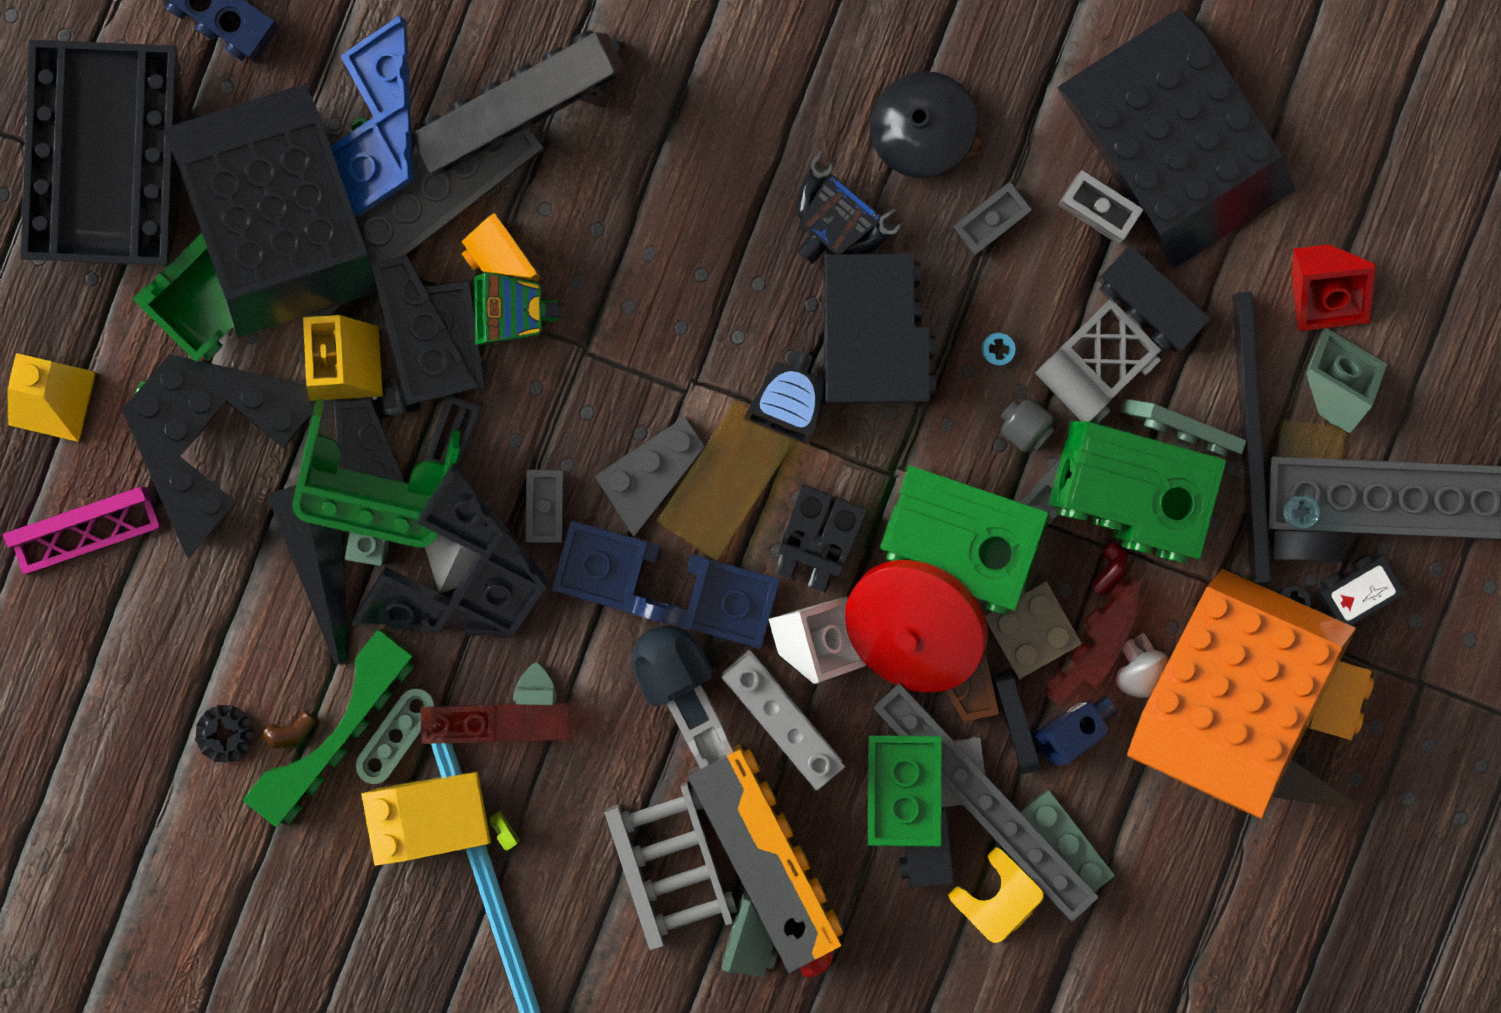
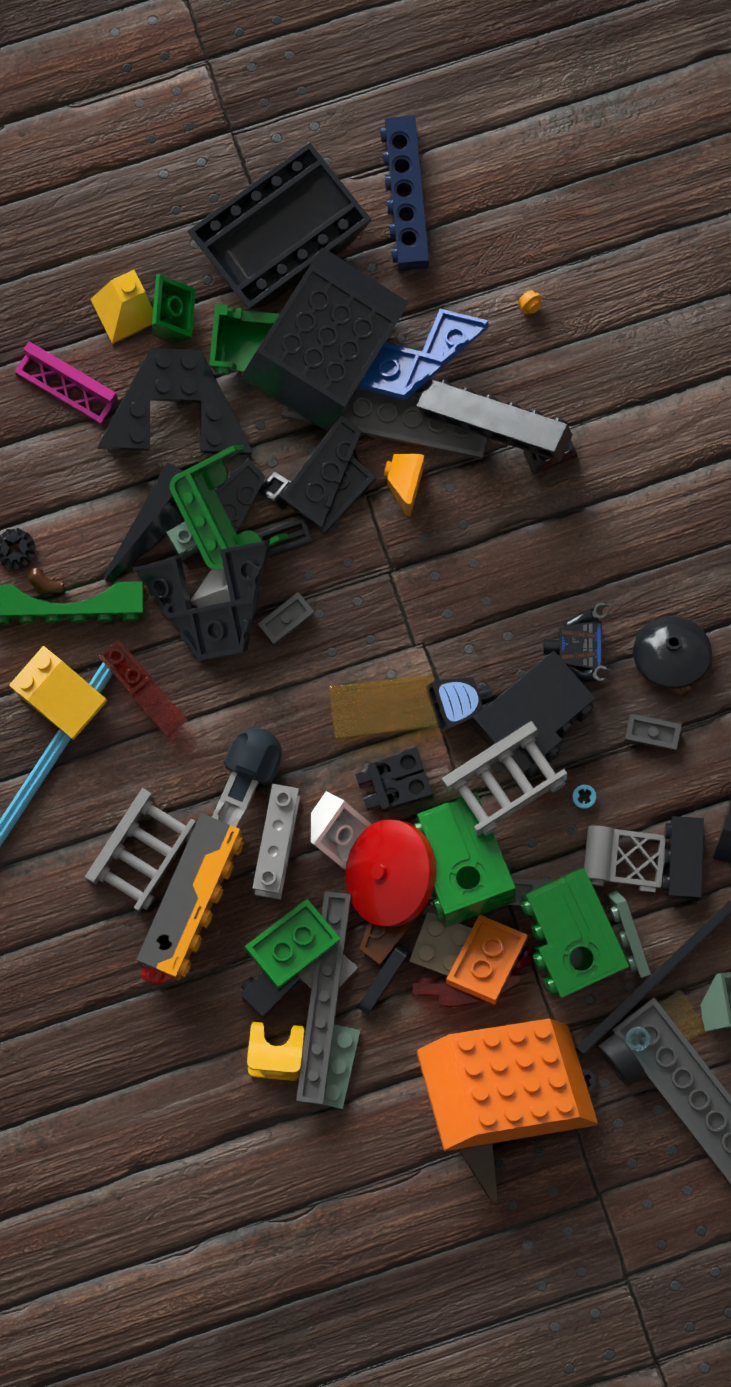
camera: 55 degrees right, 10 degrees down
(97, 347) = (172, 309): none -> green slope
(341, 358) = (276, 442): yellow slope -> none
(381, 744) = (79, 637): sand green plate -> none
(506, 834) = (84, 745): lime tile -> none
(509, 309) = (379, 510): torso -> none
(535, 687) = (180, 695): sand green tile -> none
(606, 569) = (316, 757): dark blue plate -> none
(649, 473) = (351, 660): dark grey wing -> none
(749, 944) = (132, 928): sand green slope -> none
(895, 404) = (503, 752): none -> light grey fence
(1027, 425) = (555, 846): dark grey head -> none
(1062, 738) = (395, 1012): dark blue torso -> none
(1090, 600) = (487, 959): none -> orange plate
(1100, 207) = (710, 784): light grey brick -> none
(1144, 670) = (473, 1021): light grey piece -> none
(1342, 701) = (550, 1152): light orange brick -> none
(1360, 590) = (622, 1113): brick -> none

